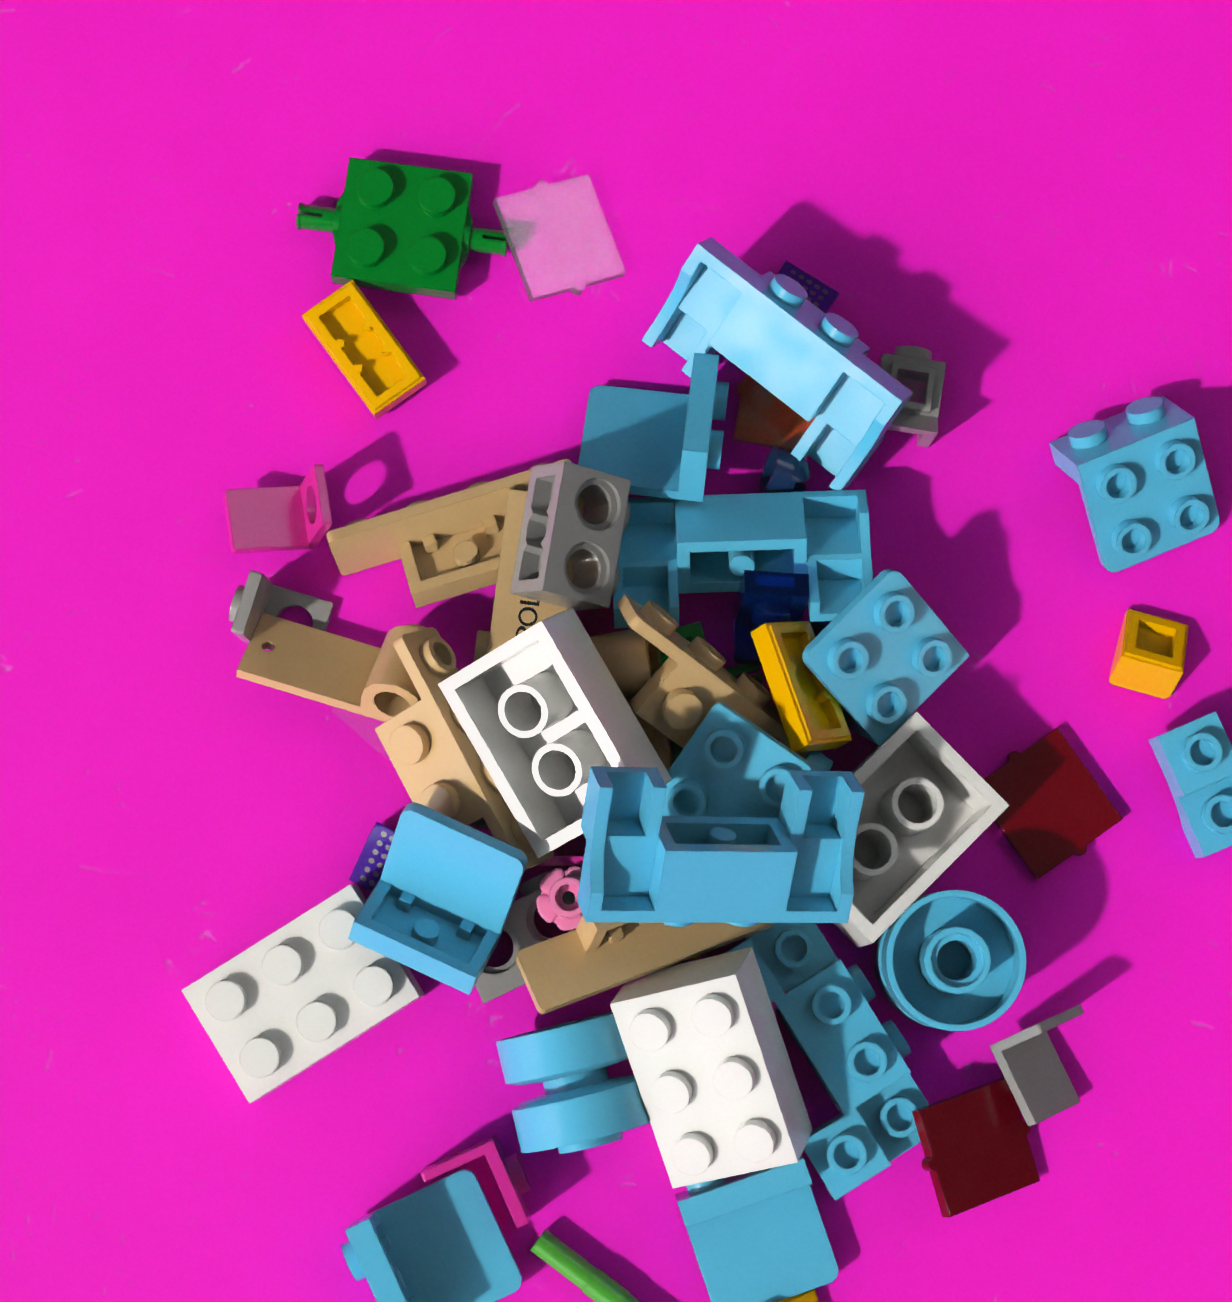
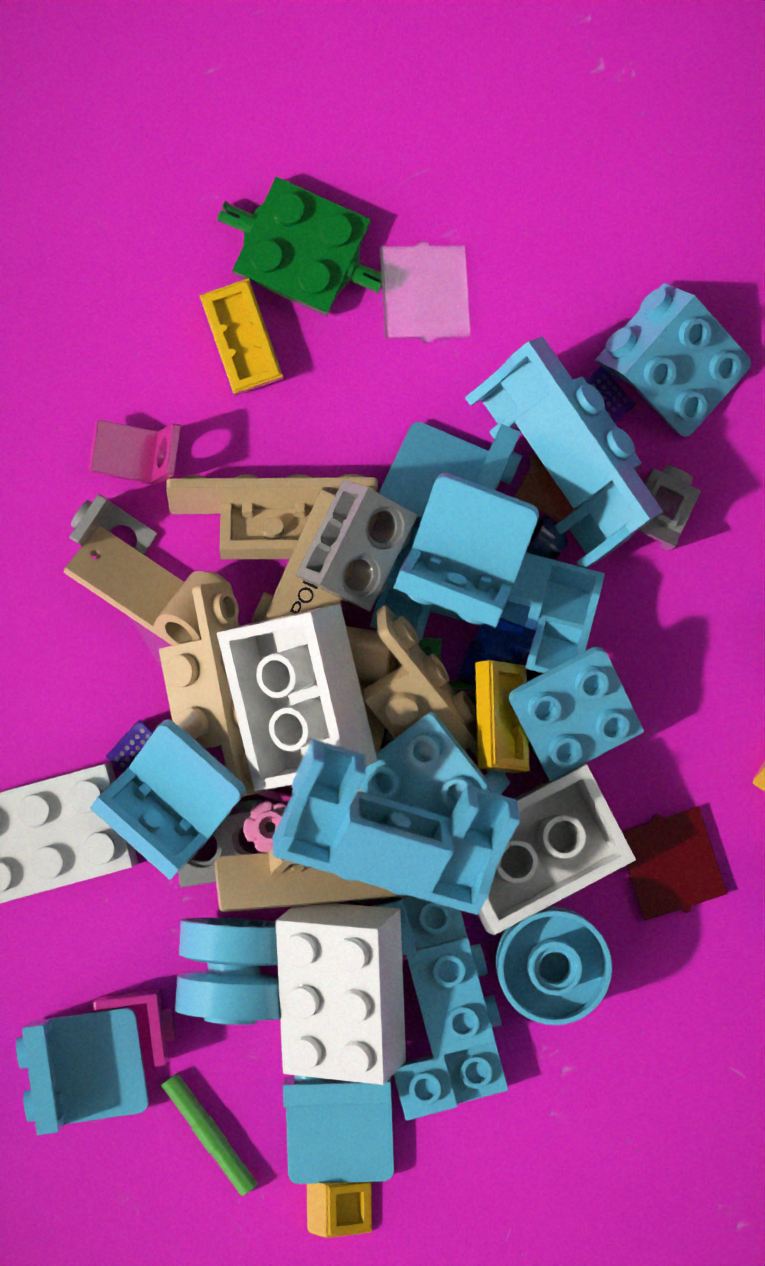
camera: 25 degrees right, 5 degrees up
(702, 497) = (468, 549): none -> medium azure bracket
(868, 224) = (676, 357): none -> medium azure bracket
(975, 1147) = (529, 1112): dark red piece -> none
(1036, 1070) = (594, 1068): light grey bracket -> none

